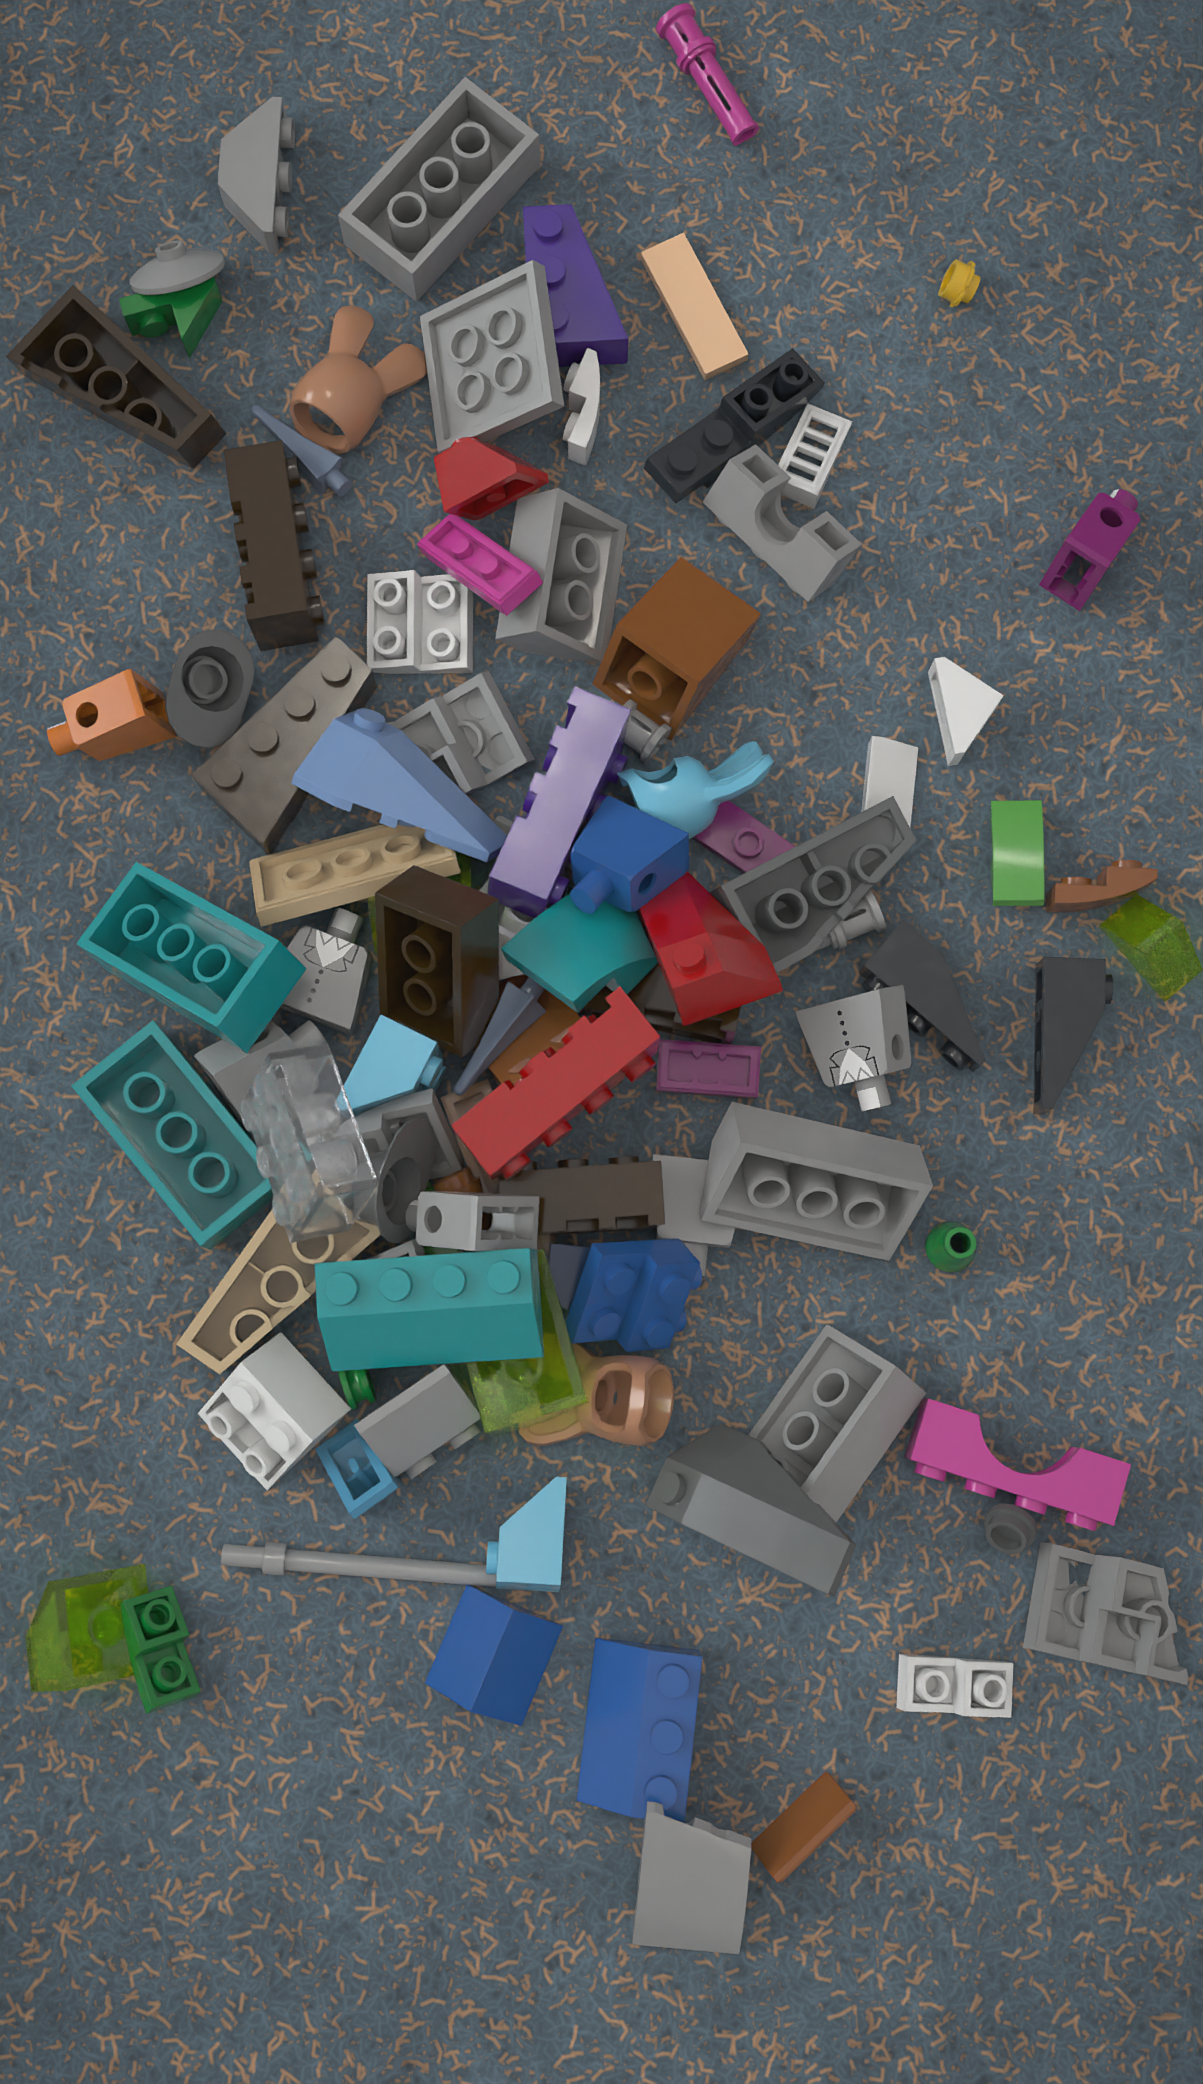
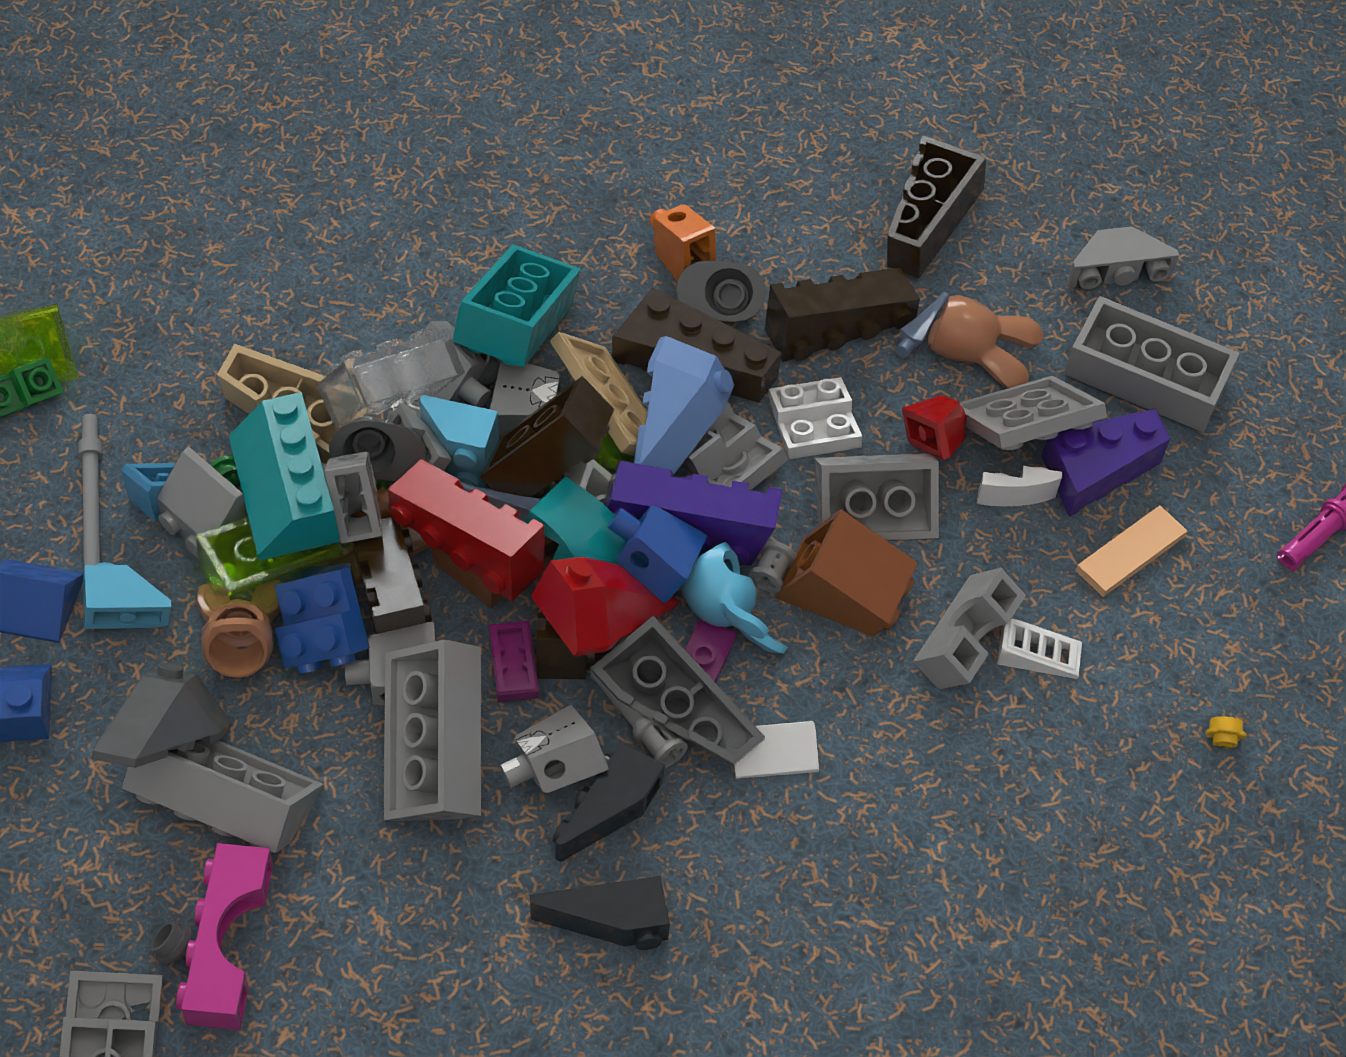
camera: 75 degrees right, 25 degrees down
(176, 269) = (1027, 221): light grey dish -> none
(177, 1134) = (391, 310): teal brick -> none
(188, 308) = (997, 231): green slope -> none
(273, 1410) = (198, 421): white slope -> none
(479, 563) = (867, 433): dark pink tile -> none
(742, 420) = (1049, 596): black slope -> none
(940, 1251) = (402, 858): green cone -> none
(955, 1686) = (35, 926): white slope -> none
(961, 706) = (856, 789): white slope -> none
(1017, 853) = (745, 851): bright green slope -> none
(1096, 538) = (1031, 860): magenta torso -> none
(1113, 885) = (735, 927): dark orange slope -> none
(1154, 945) = (694, 978): clear neon green slope -> none

